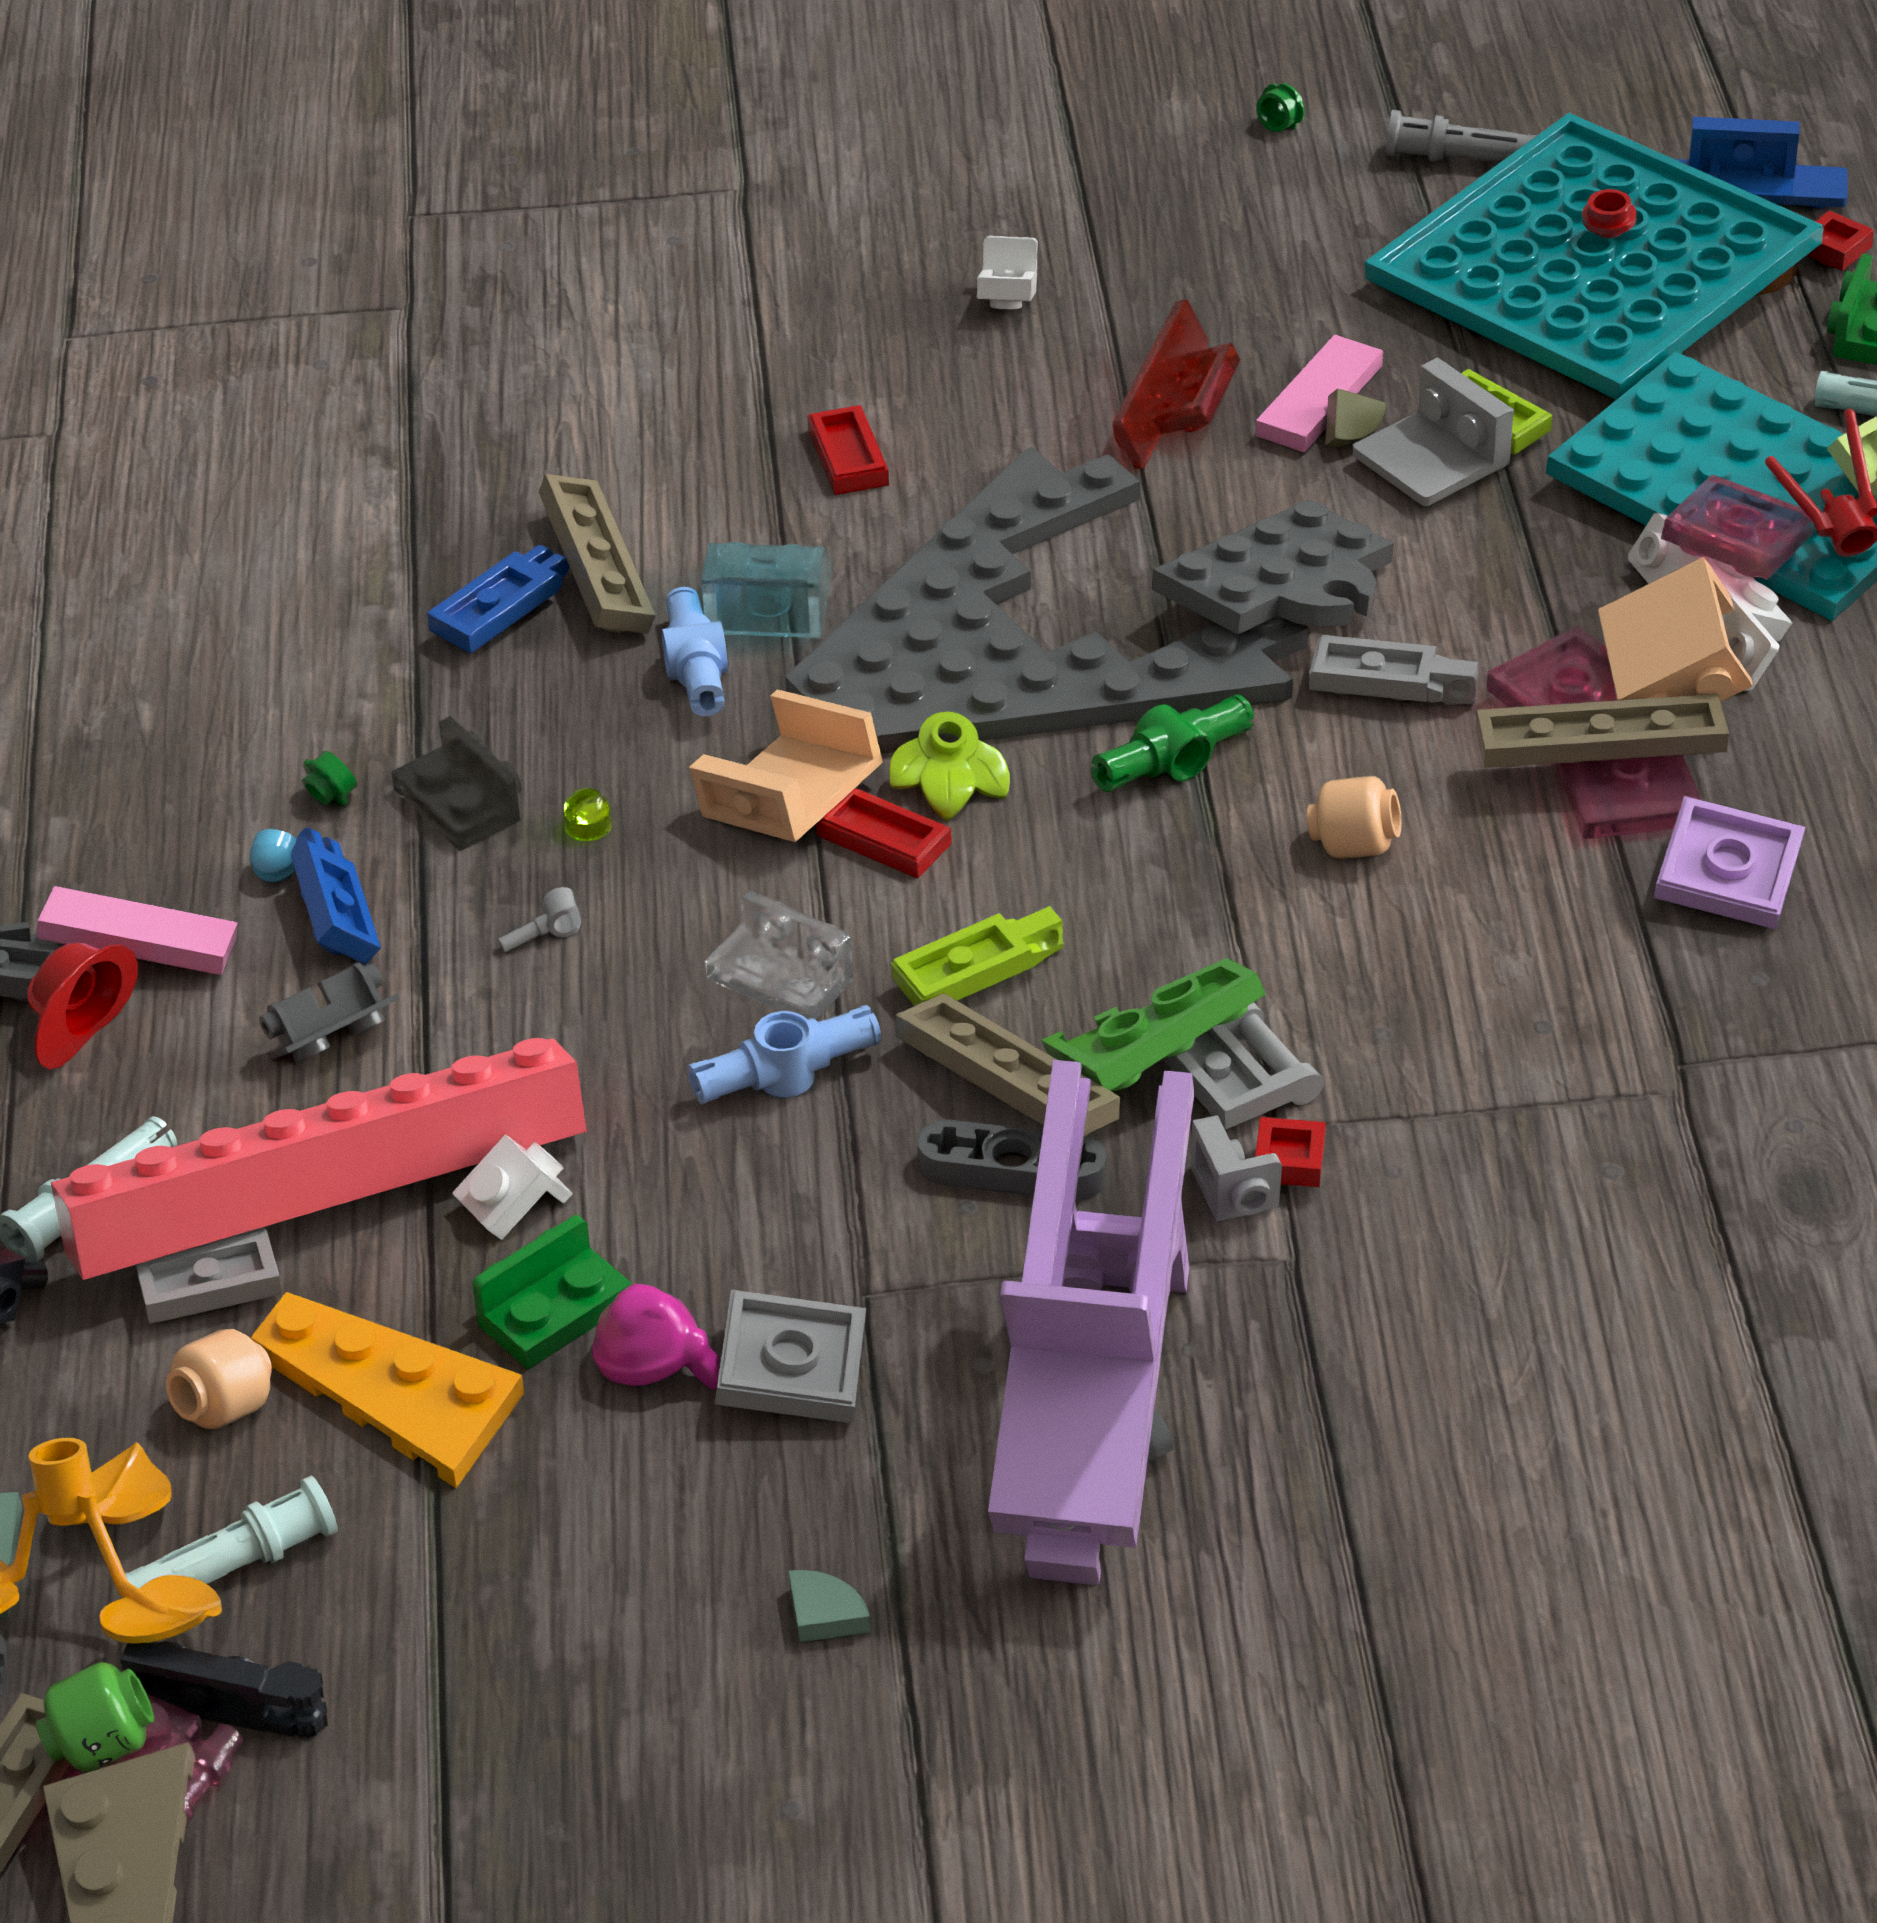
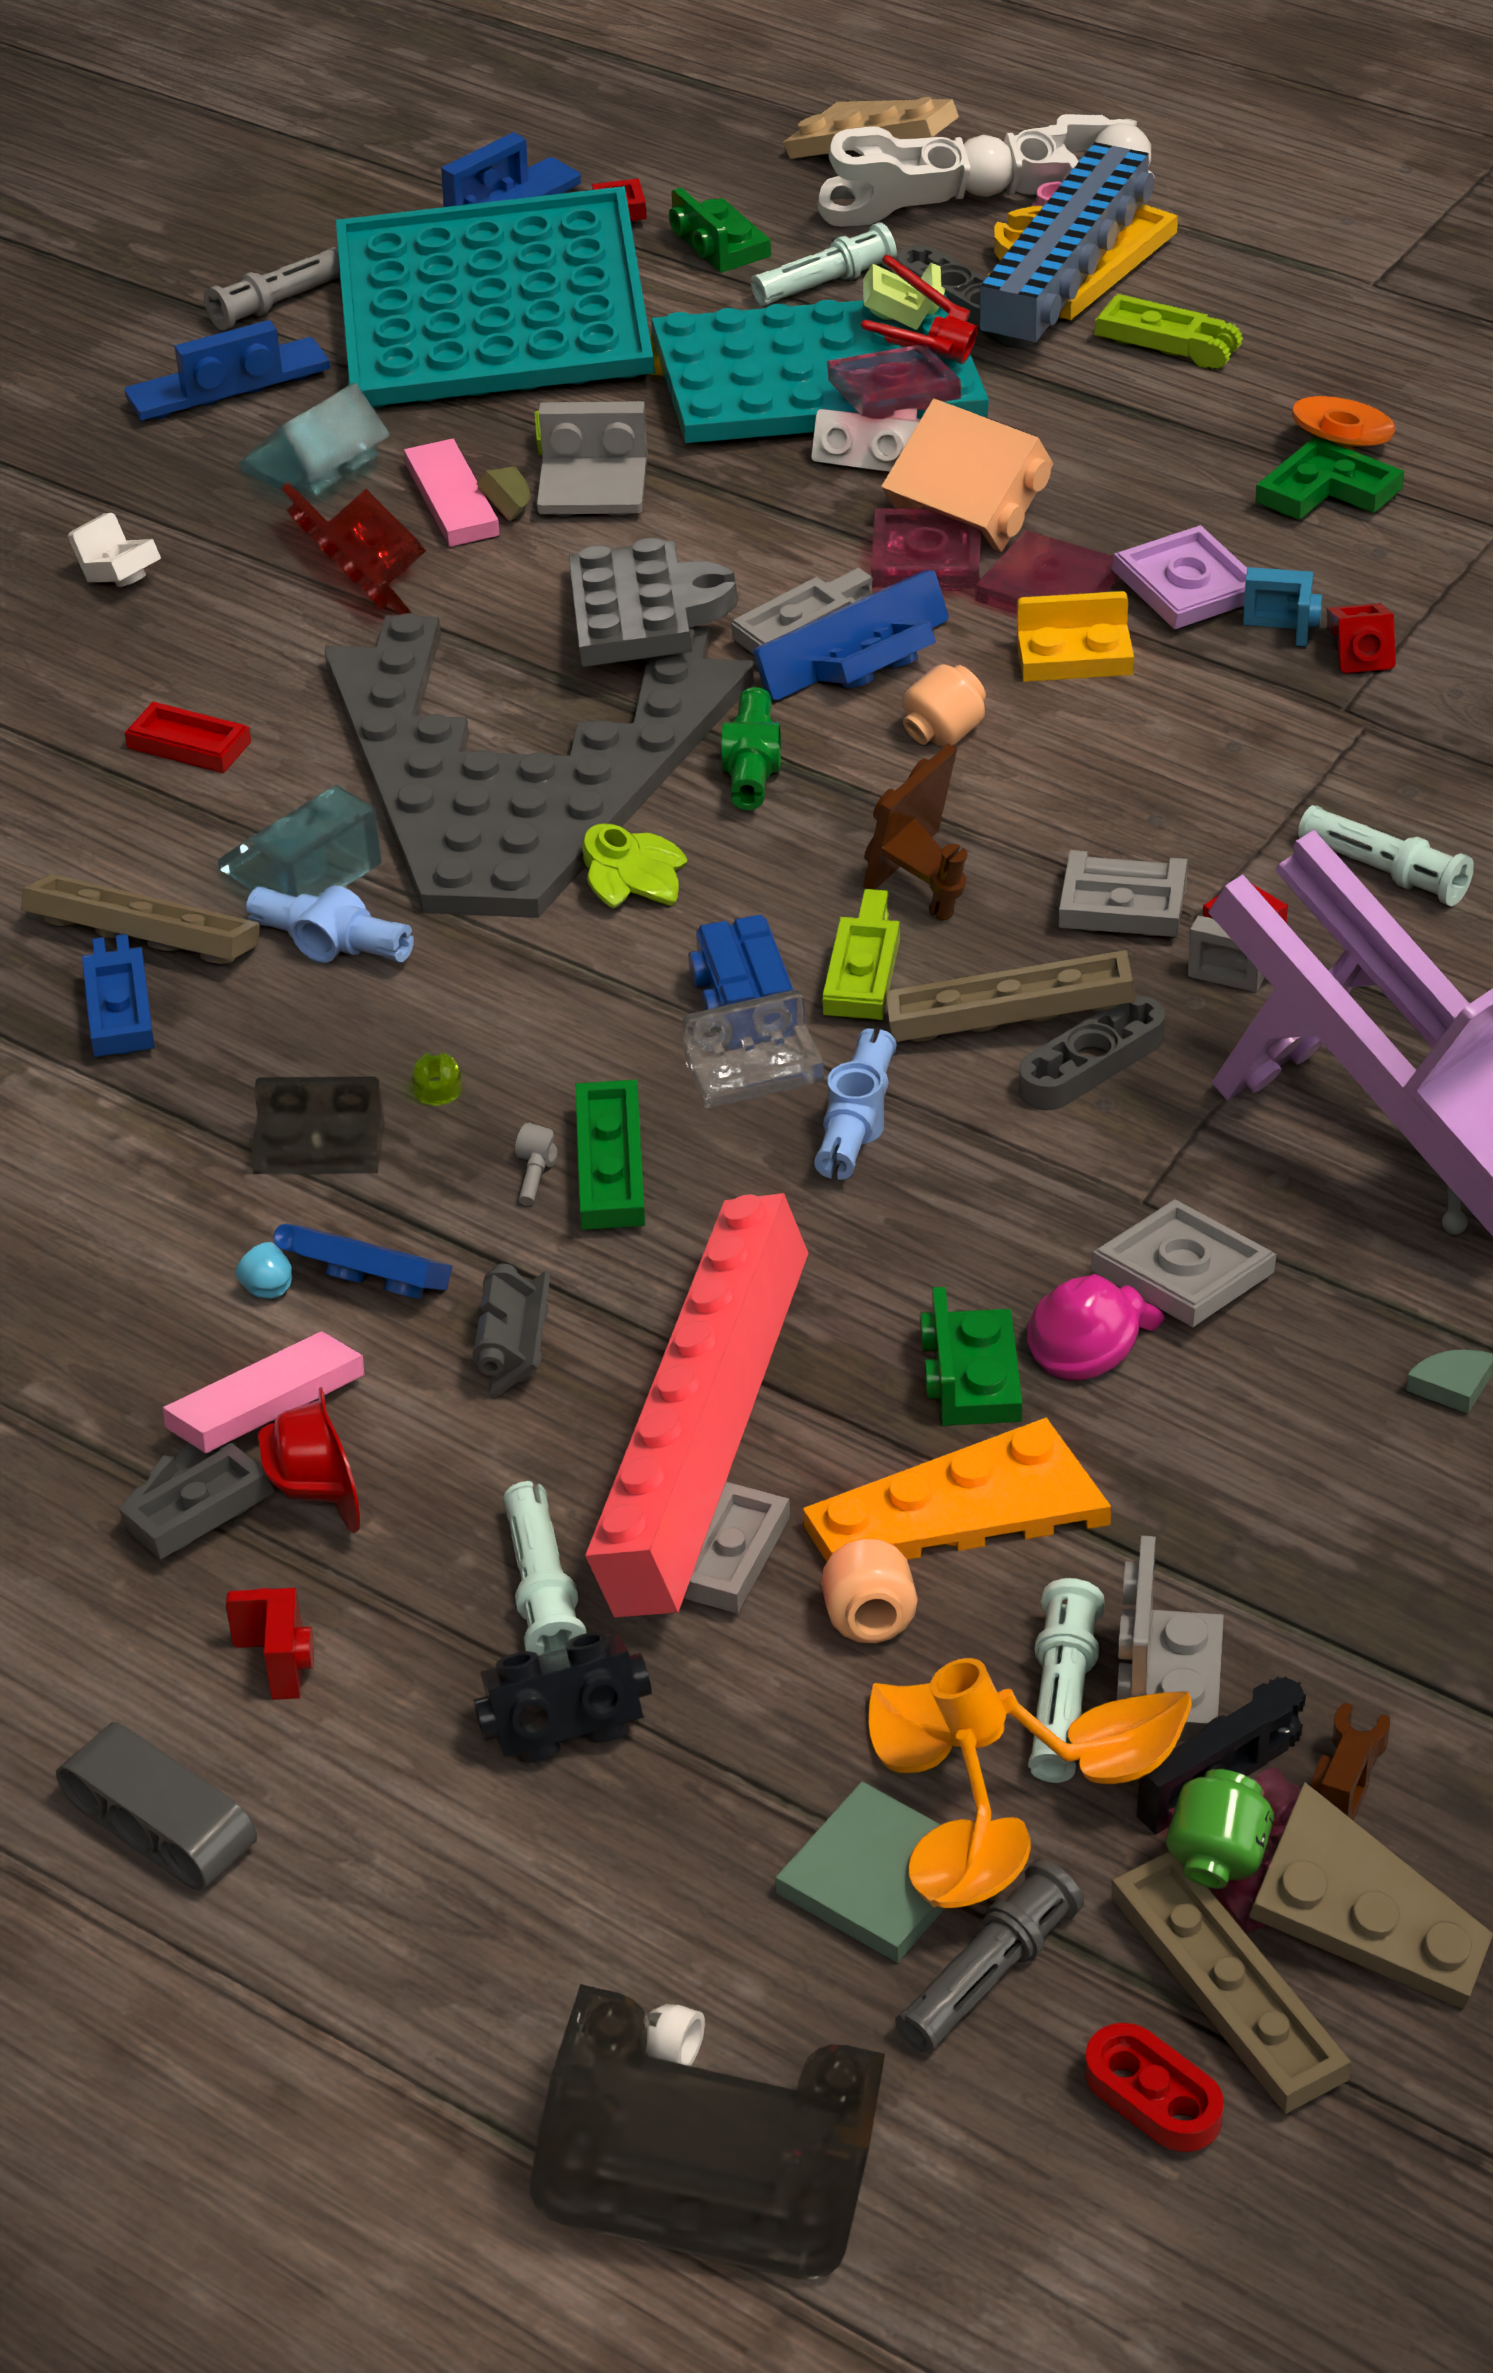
camera: 50 degrees left, 0 degrees up
(264, 1779) = (1347, 1774): none -> reddish brown plate
(295, 1580) = (1167, 1647): none -> light grey bracket
(328, 779) = (212, 1195): green plate -> none
(509, 1184) = (827, 1322): white bracket -> none
(586, 955) = (609, 1154): none -> green plate
(799, 776) = (539, 938): light nougat panel -> none
(876, 900) = (737, 962): none -> blue brick
(885, 832) = (647, 938): red tile -> none
(1146, 879) = (905, 830): none -> reddish brown plate
(1166, 1028) = (1071, 895): bright green wing -> none
(1273, 287) = (319, 444): none -> clear light blue slope
(1280, 107) = (111, 351): green plate -> none
(1313, 183) = (226, 366): none -> blue bracket
(1379, 716) = (856, 639): none -> blue bracket
(1483, 1215) = (1406, 860): none -> light aqua pin
(1555, 844) = (1074, 636): none -> yellow bracket
(1601, 730) = (1008, 551): dark tan plate -> none
(1609, 213) = (484, 257): red plate -> none
(1764, 939) = (1282, 601): none -> dark azure bracket
(1777, 1011) = (1363, 637): none -> red bracket

